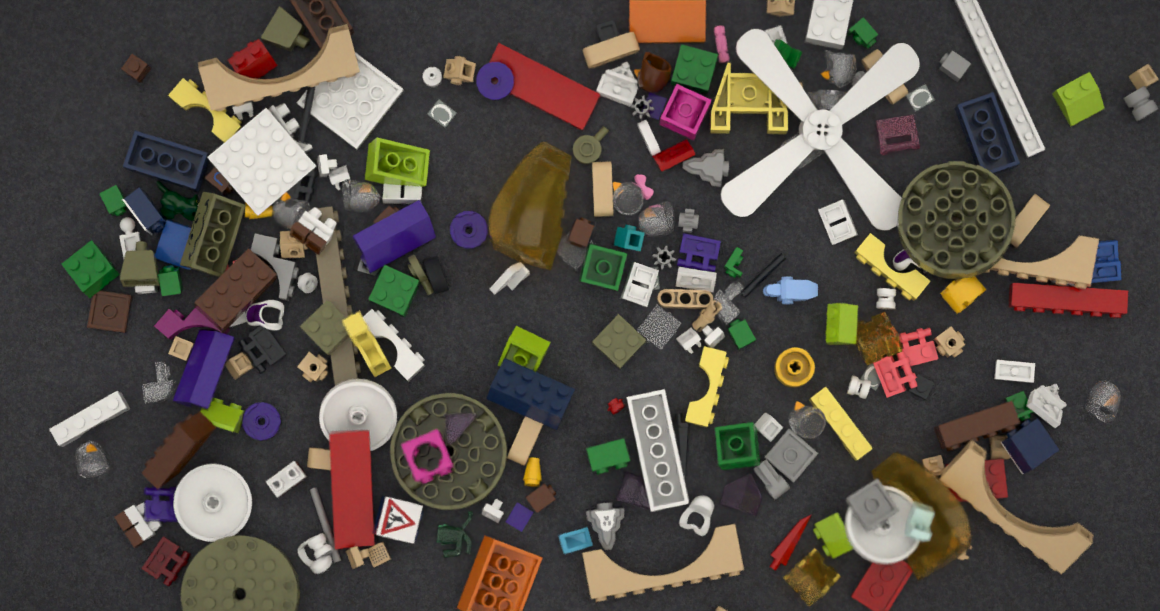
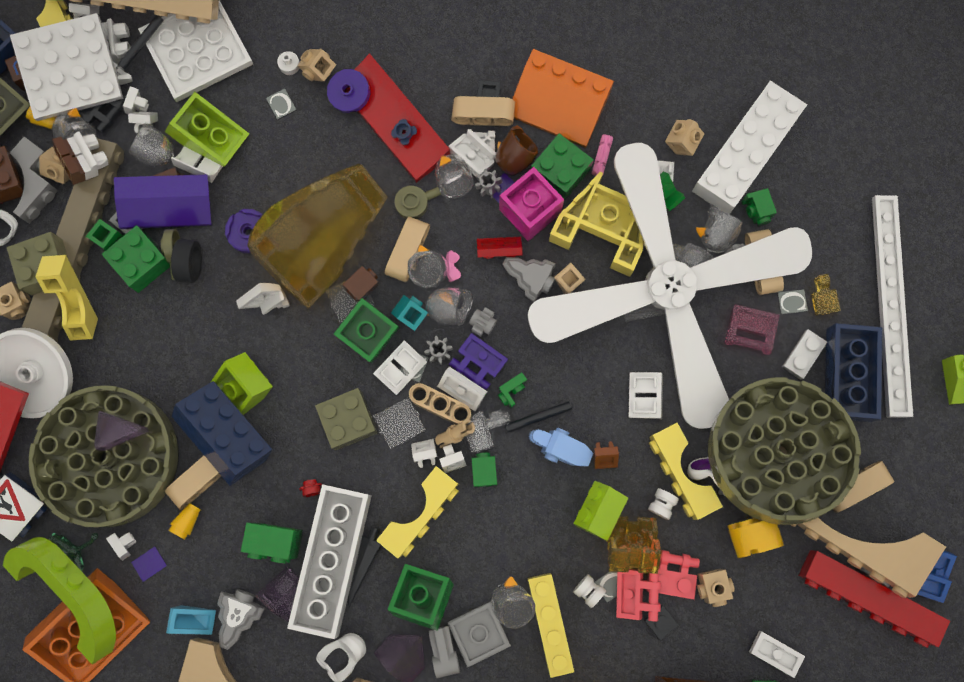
camera: 25 degrees right, 5 degrees down
(307, 282) = (53, 211): white tile -> none
(362, 284) = (103, 235): none -> green brick
(407, 362) = (112, 340): white arch -> none
(411, 450) = (45, 445): dark pink brick -> none
(479, 549) = (72, 587): none -> lime arch
(541, 497) = (179, 554): reddish brown brick -> none
(553, 91) = (399, 127): none -> dark blue plate
(612, 115) = (453, 176): none -> clear piece
(648, 137) = (481, 217): white beam -> none
(740, 157) = (569, 278): none -> tan slope
(768, 426) = (467, 588): white slope -> none
(804, 363) = (539, 532): yellow brick -> none
(828, 282) = (606, 457): none -> dark orange tile
(944, 85) = (824, 300): none -> clear yellow plate
(945, 136) = (804, 354): none -> white plate
(954, 65) = (846, 282): light grey brick -> none

